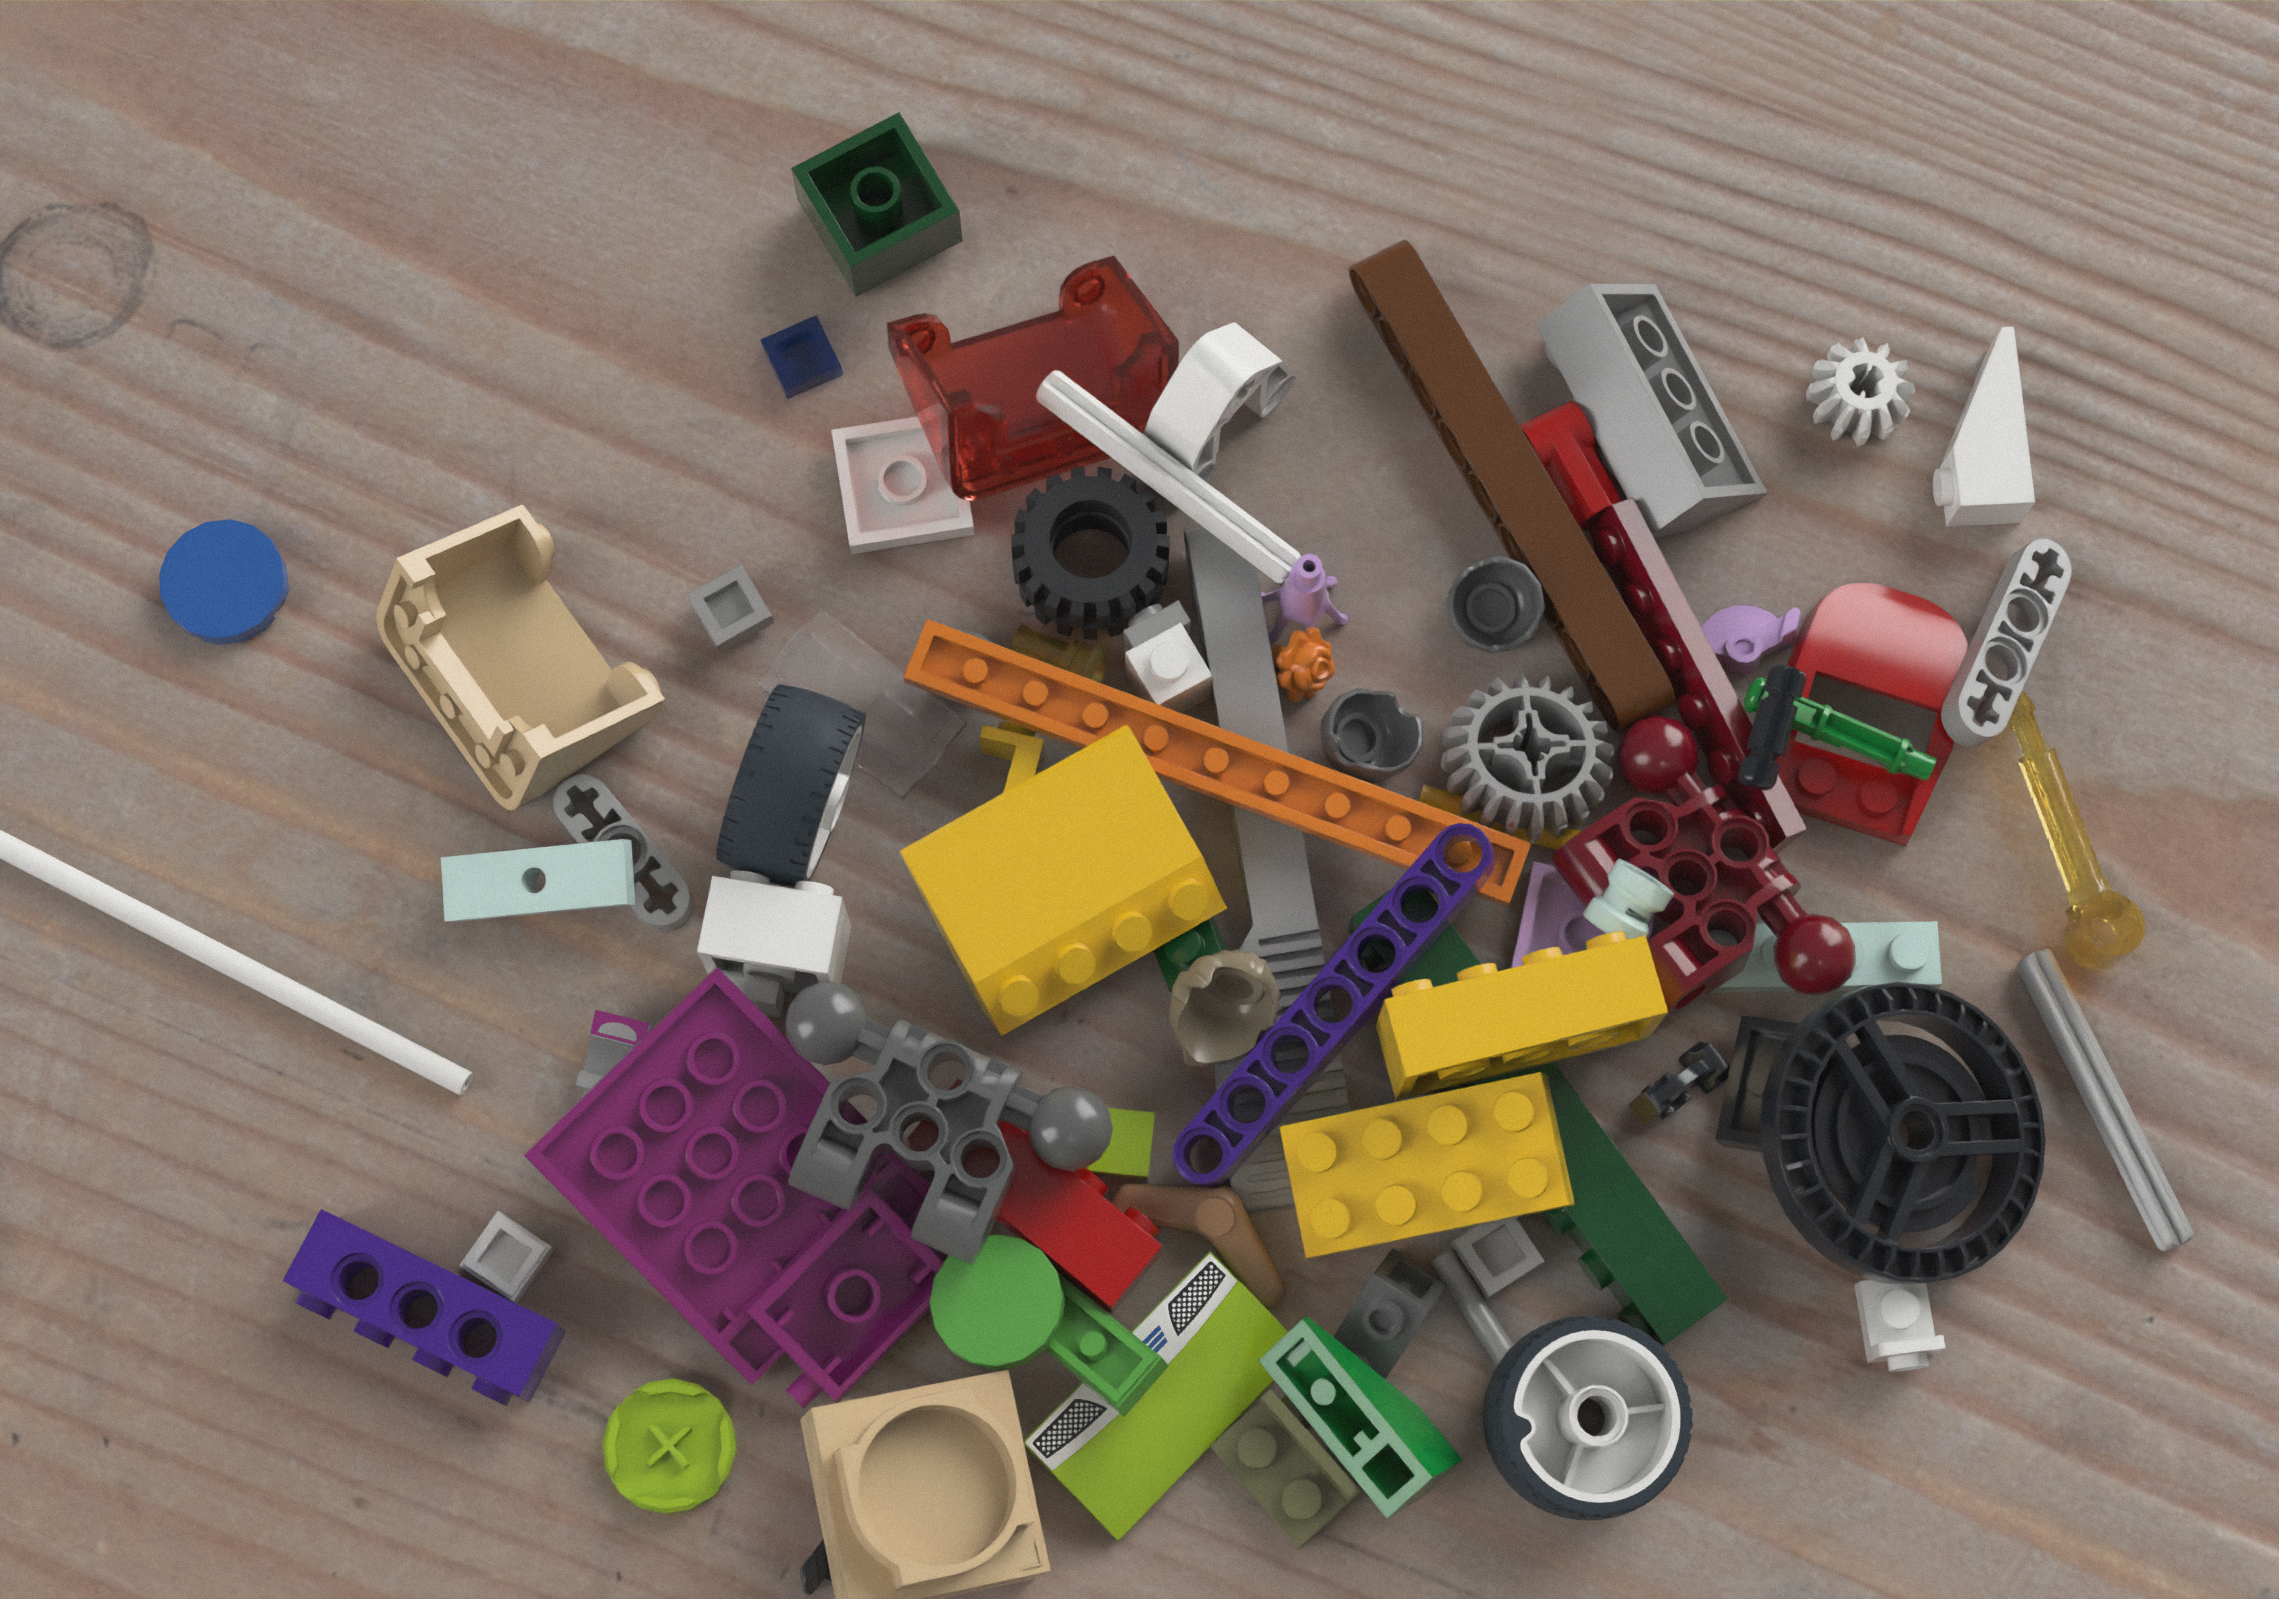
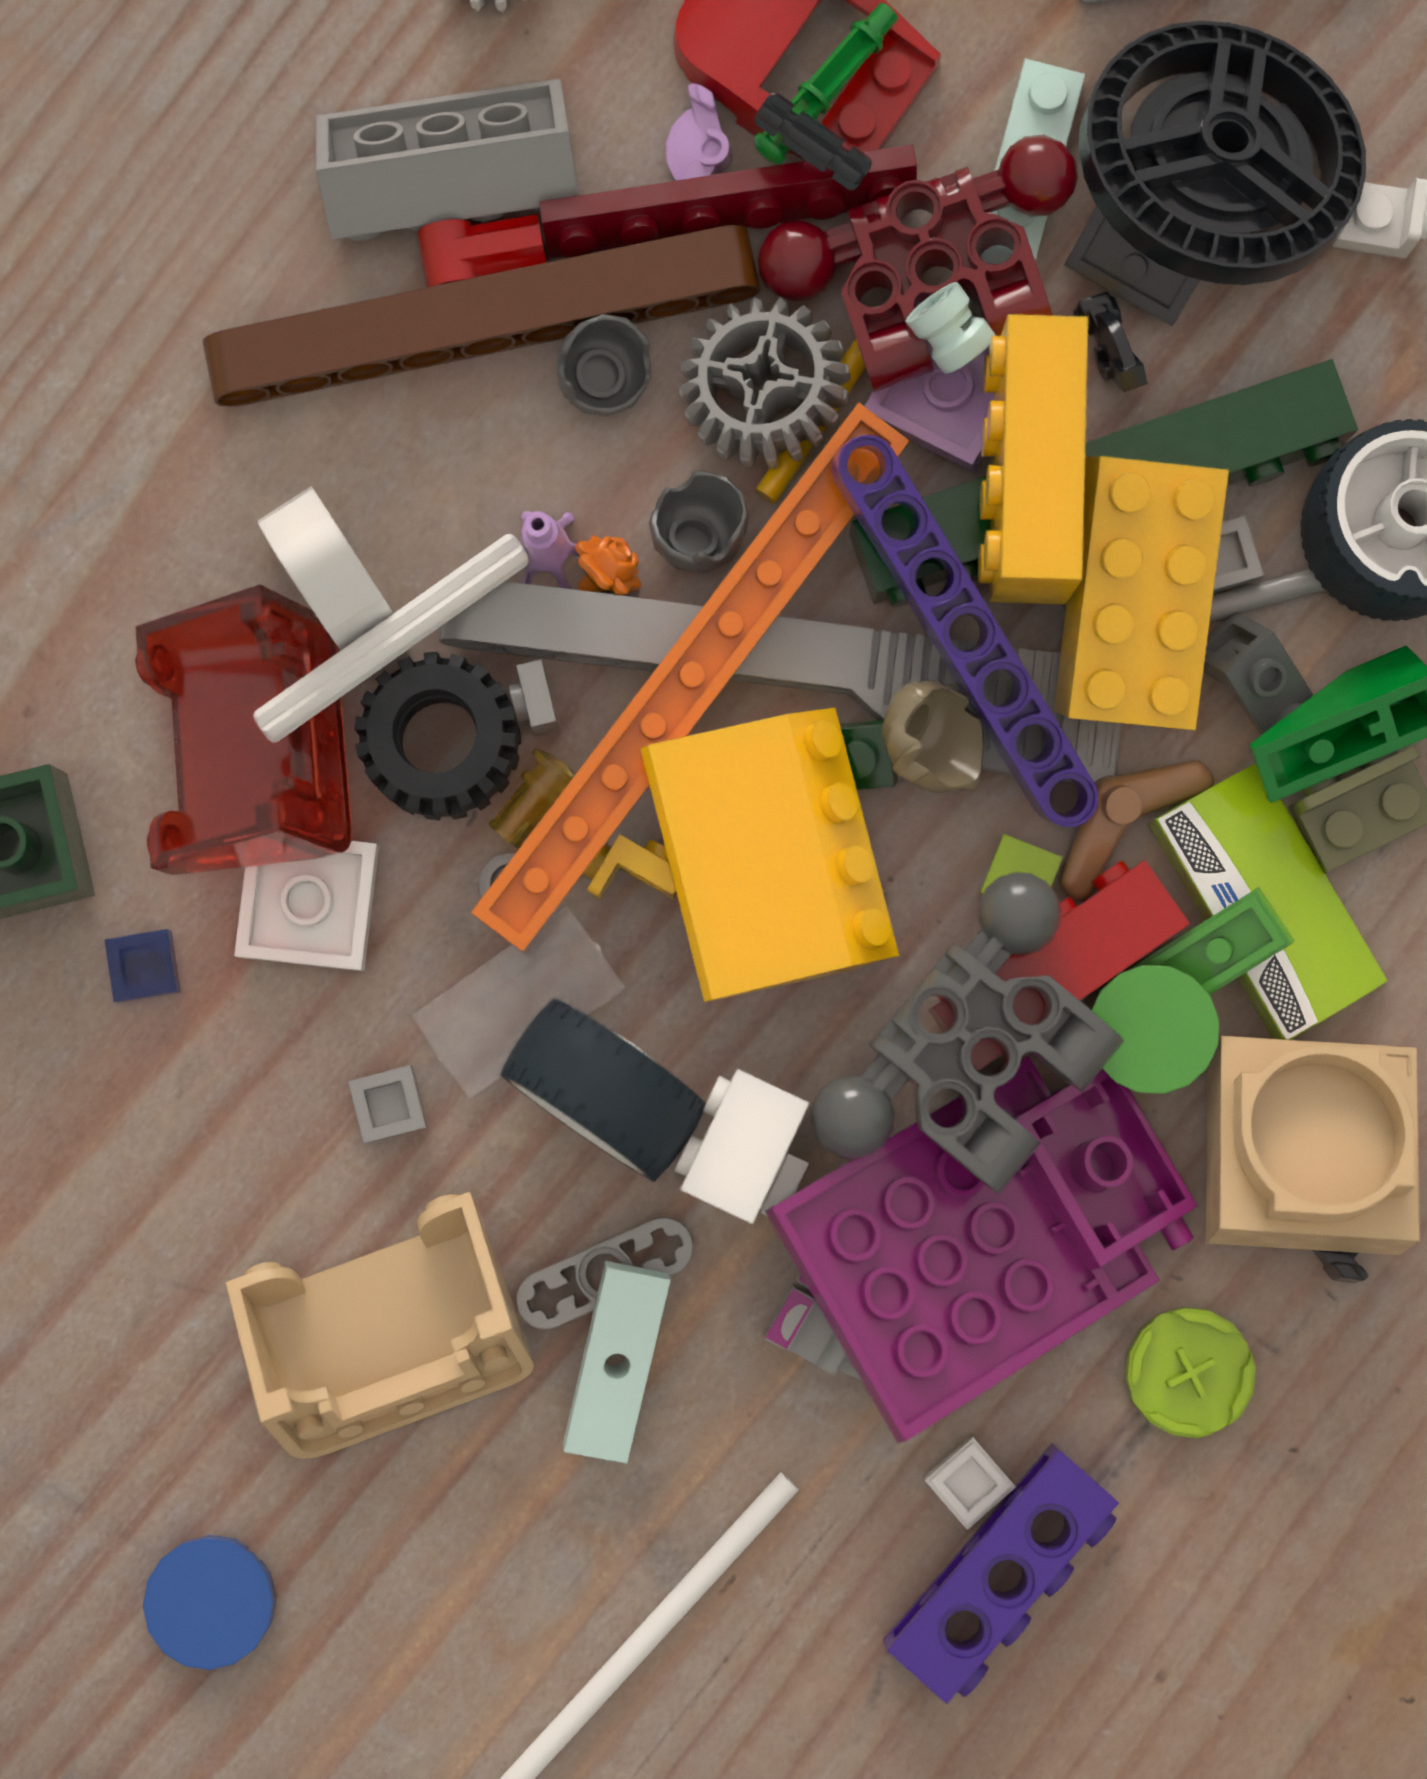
camera: 70 degrees left, 10 degrees up
(1169, 671) = (581, 697): white brick -> none

